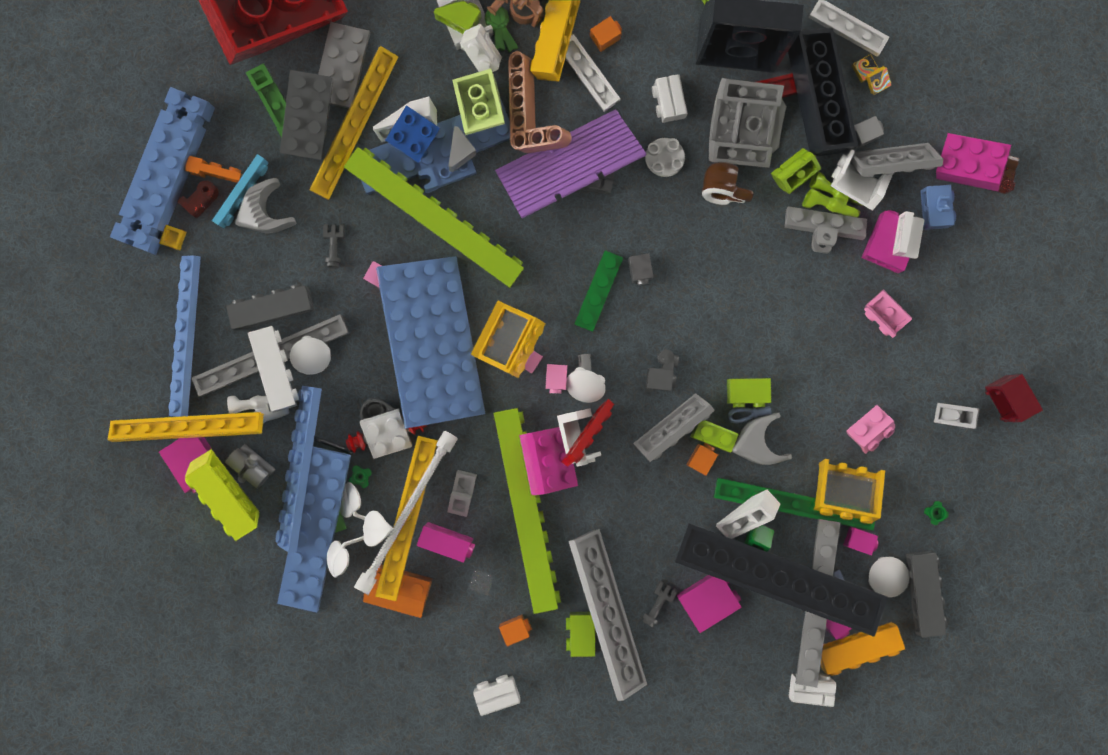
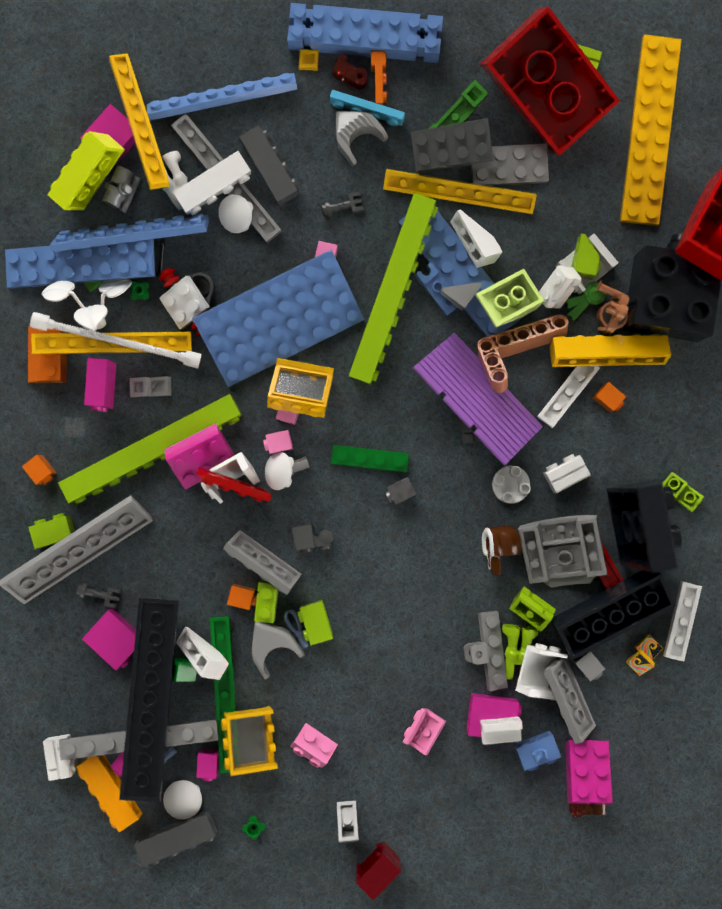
camera: 80 degrees right, 0 degrees up
(412, 134) = (462, 247): blue hinge -> none

